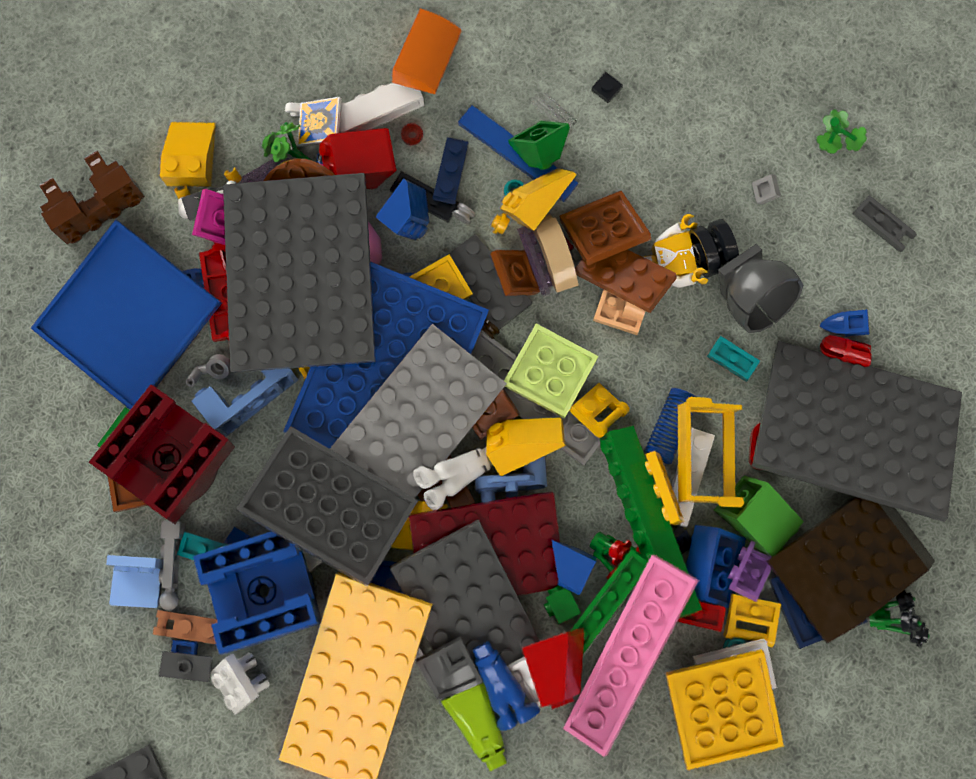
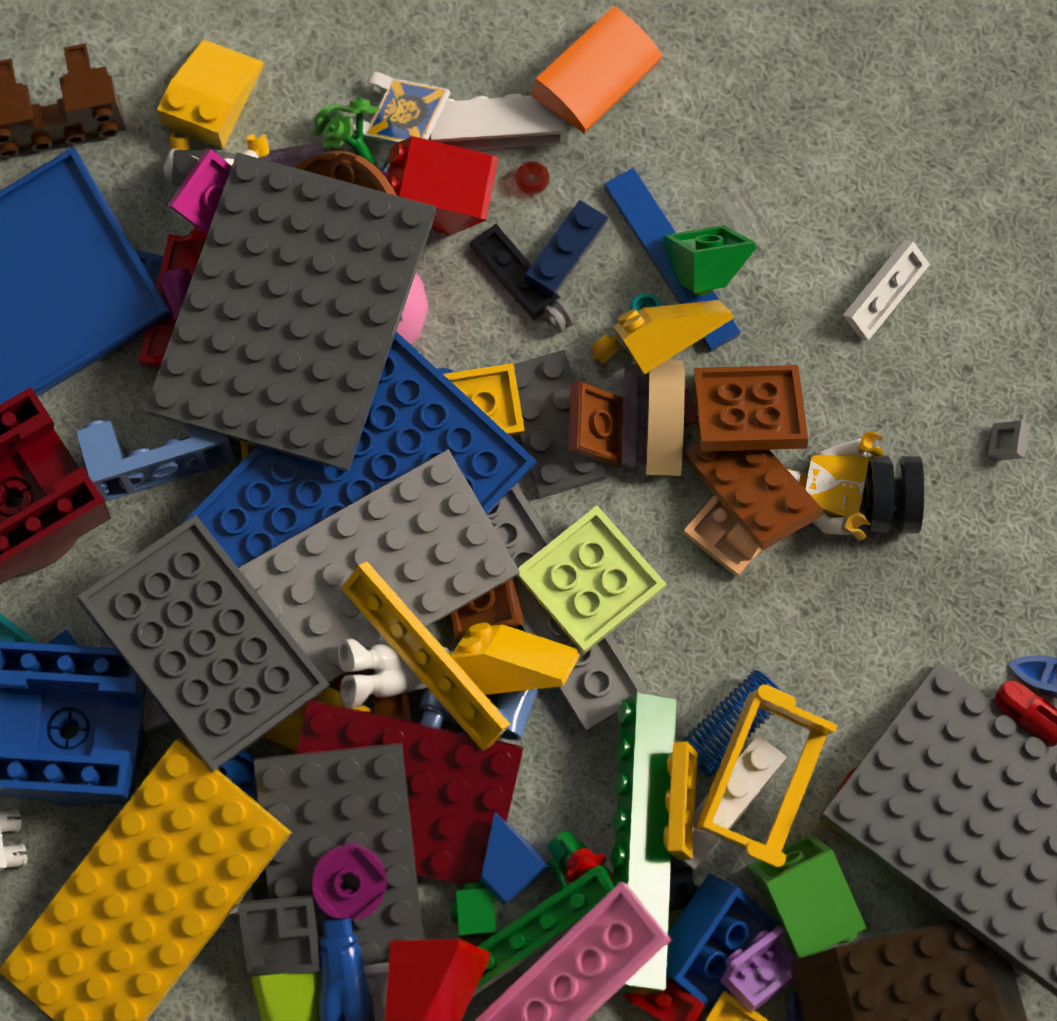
camera: 20 degrees right, 5 degrees down
(212, 367) = (123, 399): light grey plate -> none
(218, 286) = (175, 287): none -> magenta cone
(406, 211) = (477, 281): blue slope -> none
(470, 459) = (425, 656): none -> yellow plate
(483, 633) = (348, 903): none -> magenta plate
(490, 329) = (530, 490): dark brown bush -> none
(593, 404) = (634, 650): yellow plate -> none
(606, 87) = (838, 212): black plate -> none
(656, 124) = (886, 289): none -> white plate
(733, 358) = (862, 662): teal plate -> none
(759, 281) = (931, 561): dark grey plate -> none

